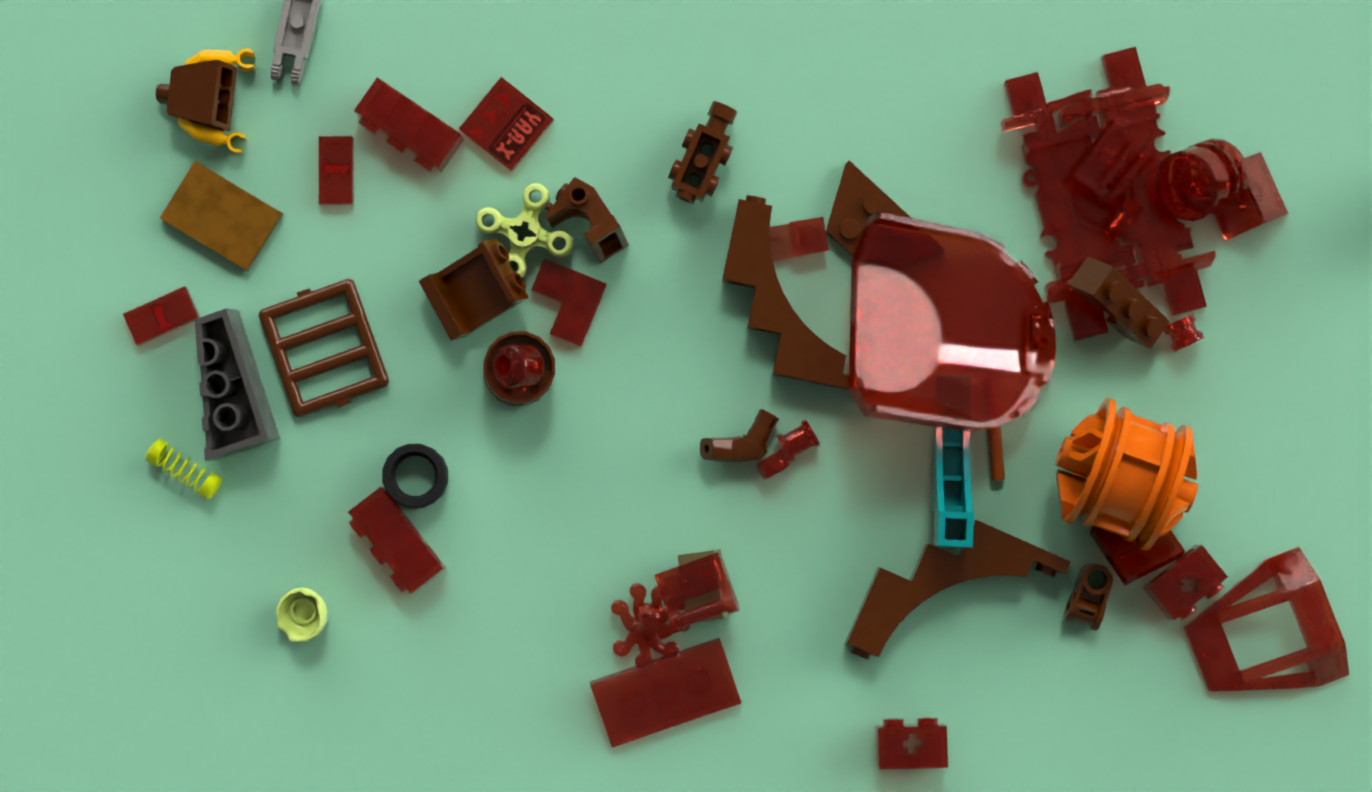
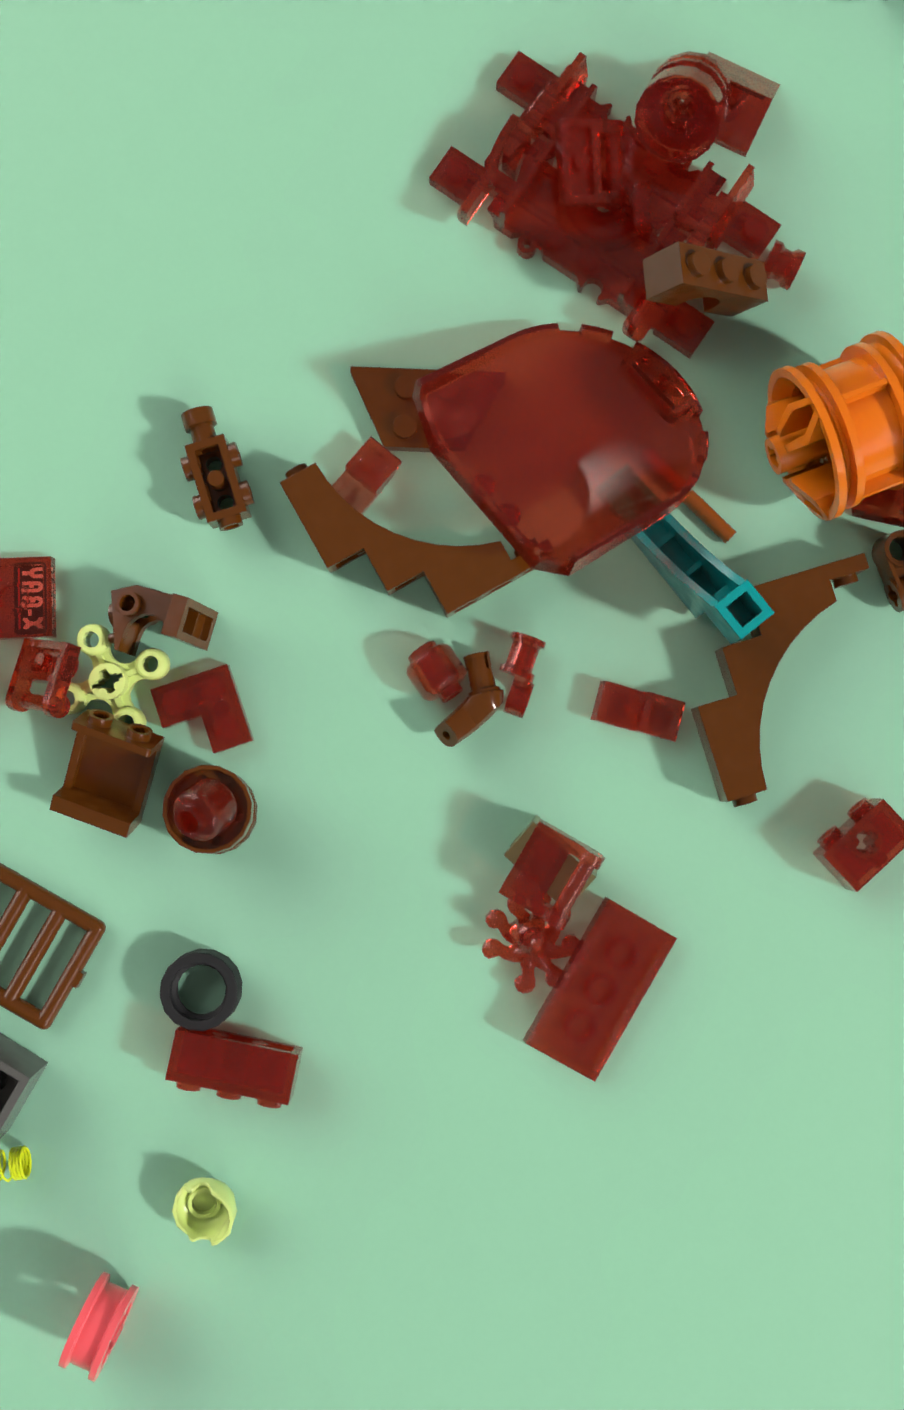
camera: 35 degrees left, 0 degrees up
(179, 627) = (98, 1326): none -> coral wheel
(492, 185) = (44, 663): none -> clear red plate
(734, 403) = (436, 671): none -> clear red head
(841, 538) = (638, 711): none -> clear red slope

